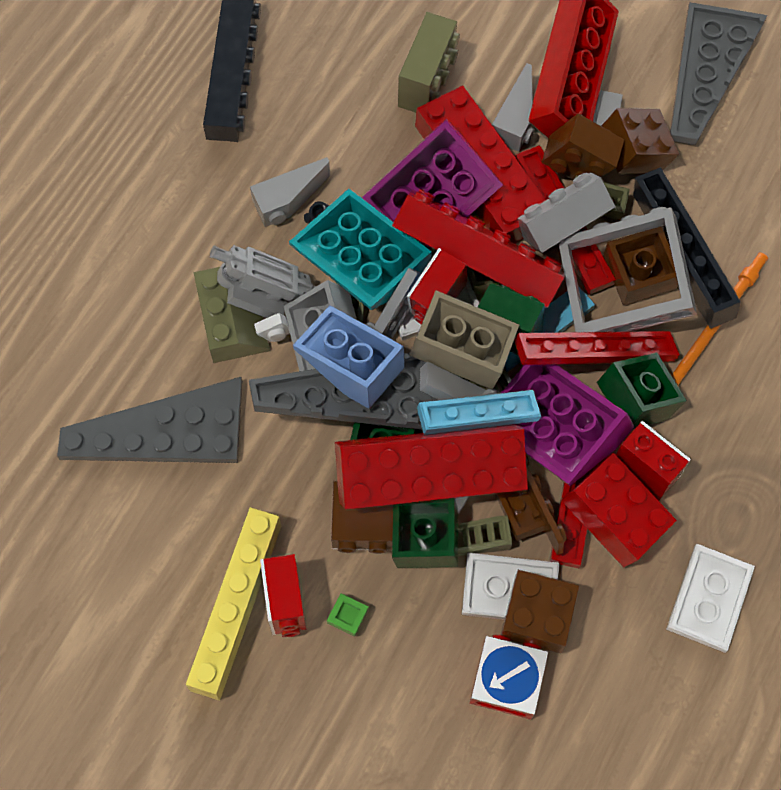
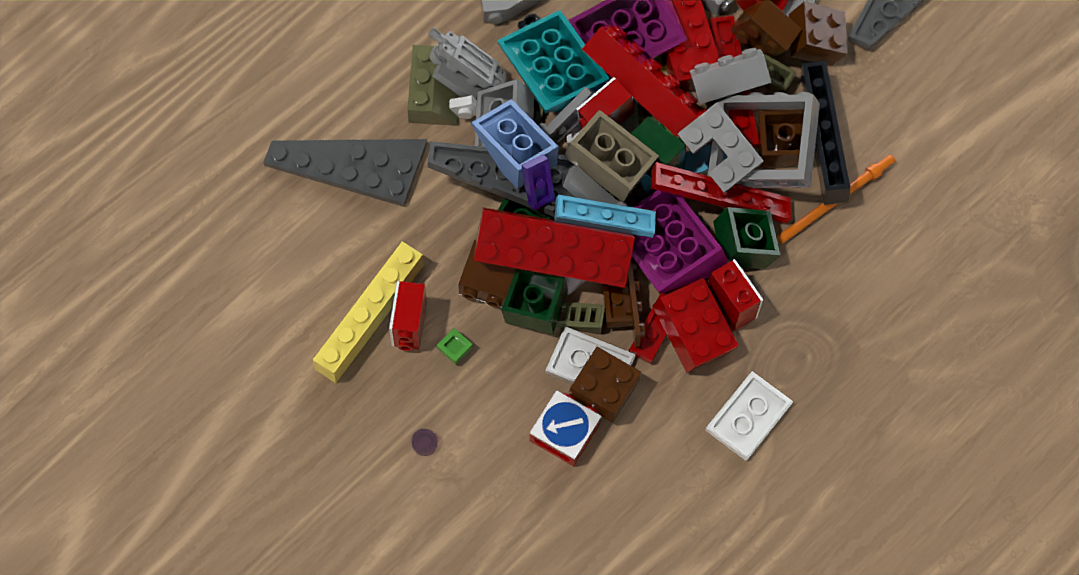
camera: 15 degrees right, 0 degrees up
(347, 743) = (424, 442): none -> clear purple tile
(393, 394) = (538, 181): none -> dark purple plate
(575, 272) = (718, 126): none -> light grey plate

